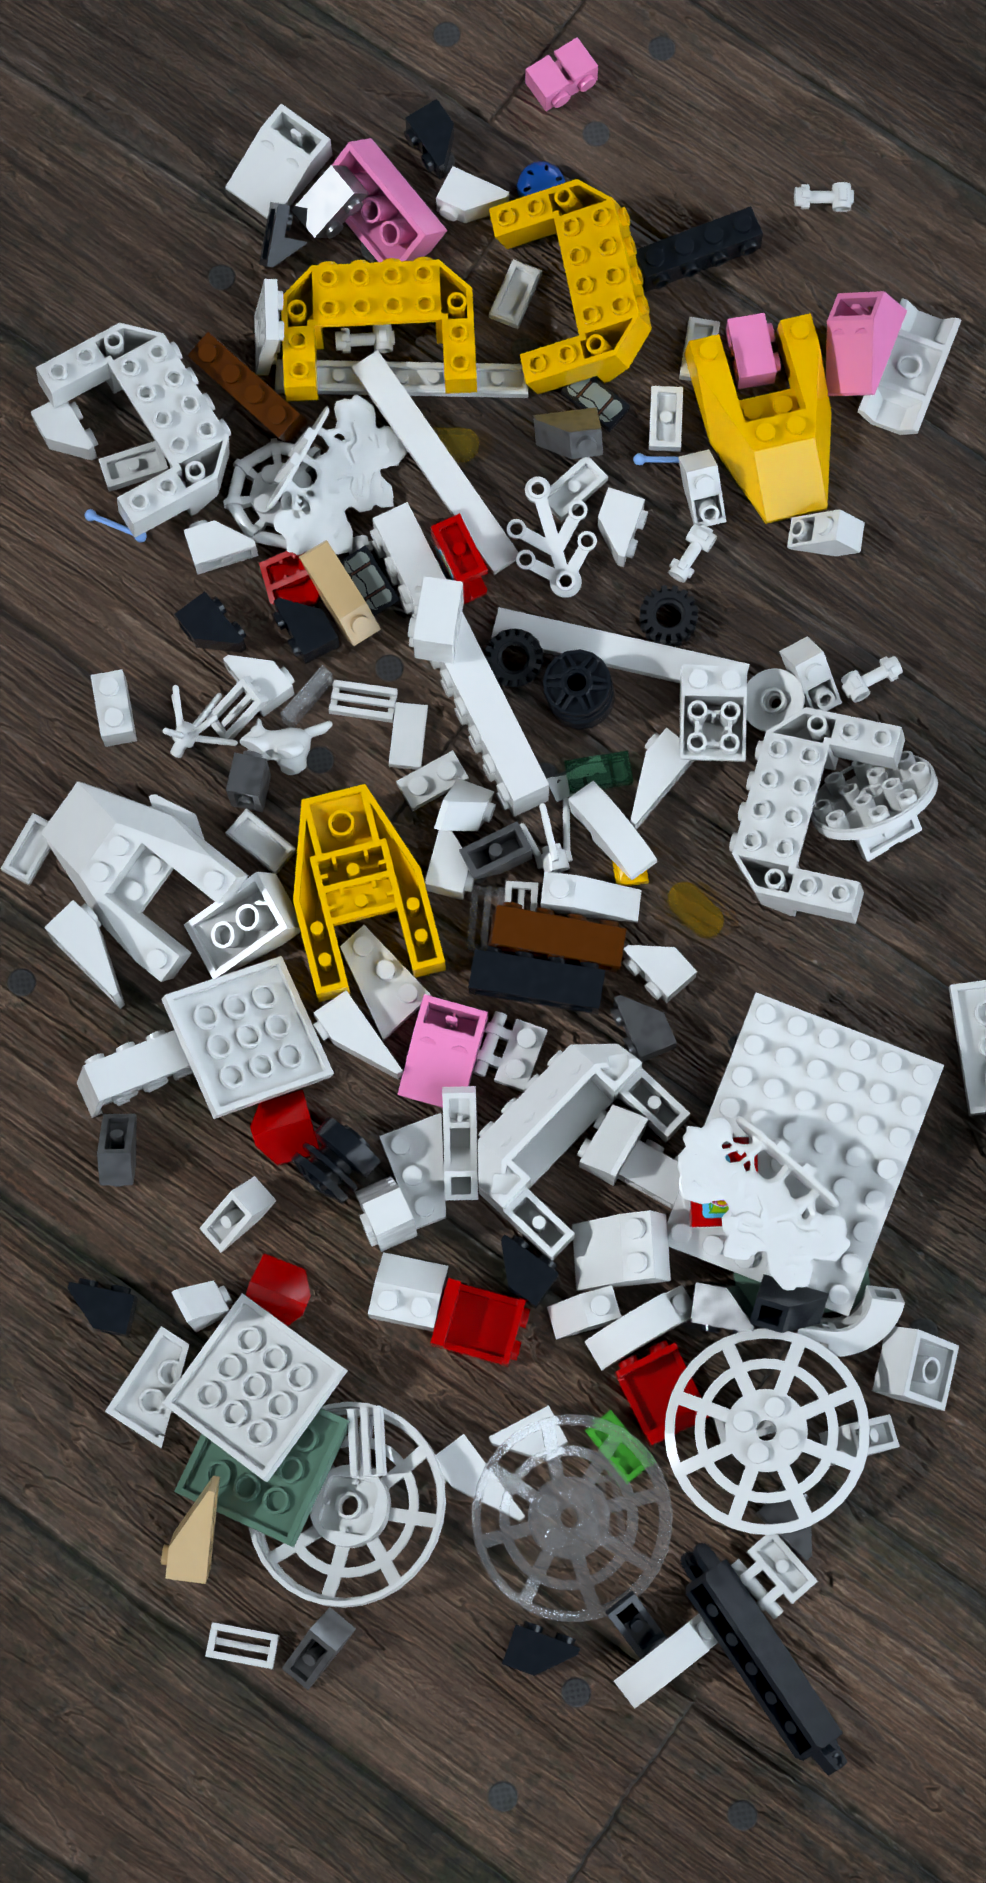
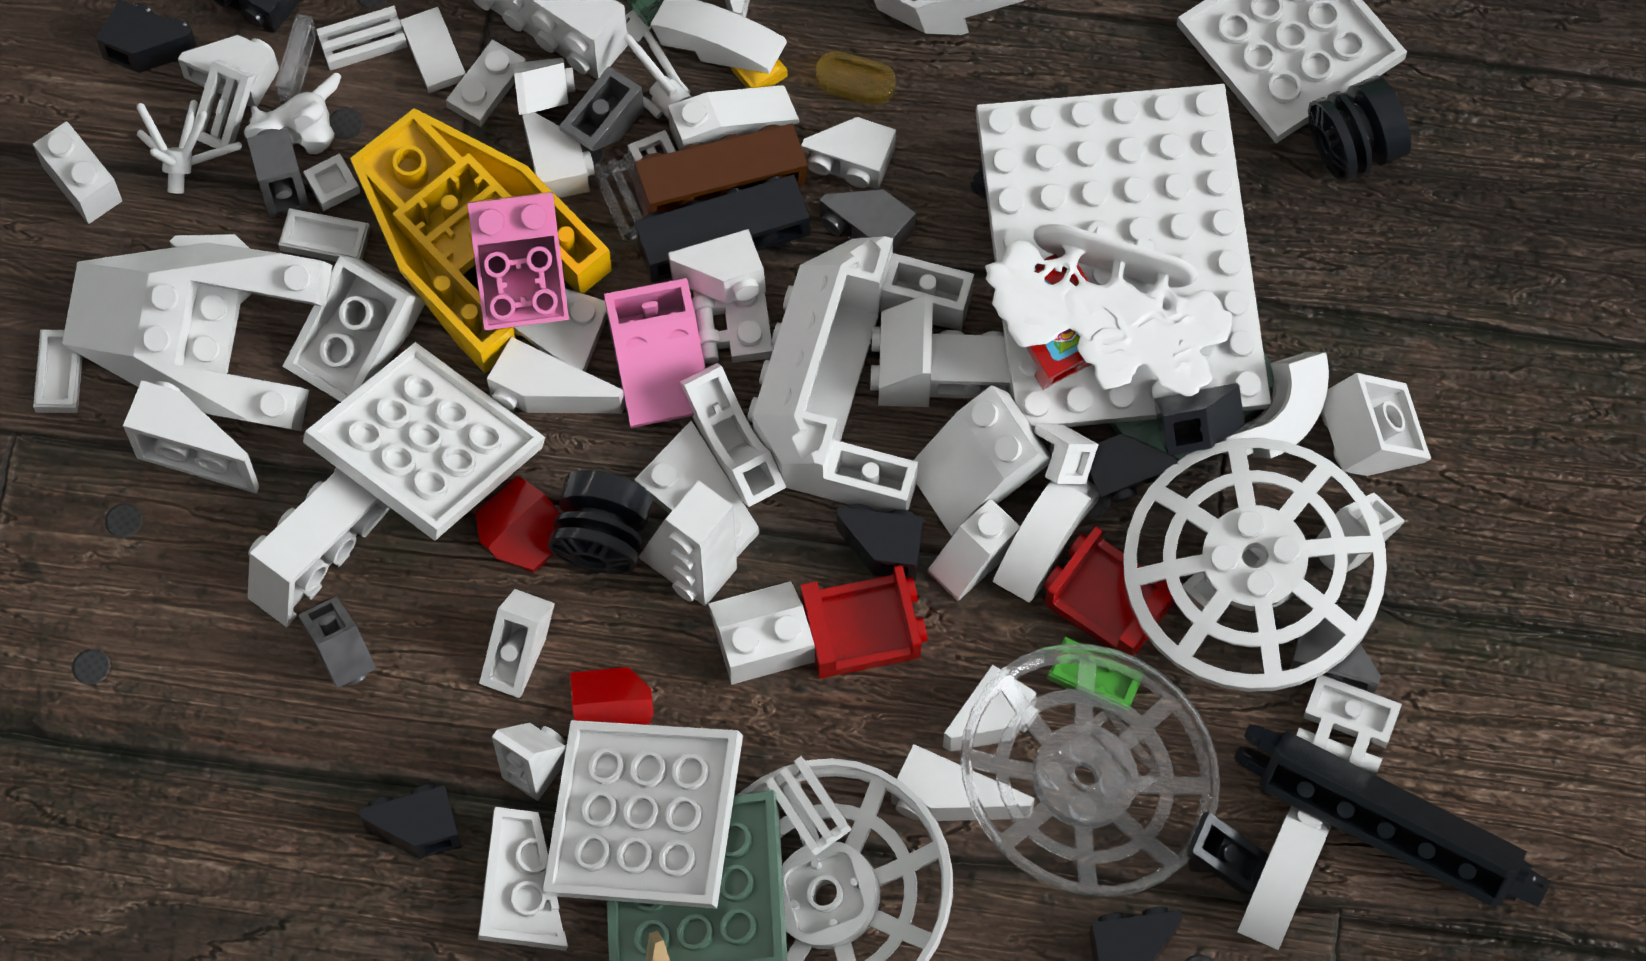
camera: 30 degrees left, 10 degrees down
(285, 803) = (331, 182): none -> white plate
(375, 940) = (518, 260): none -> bright pink slope
(518, 1014) = (721, 268): none -> white slope
(684, 1282) = (1070, 454): none -> white panel

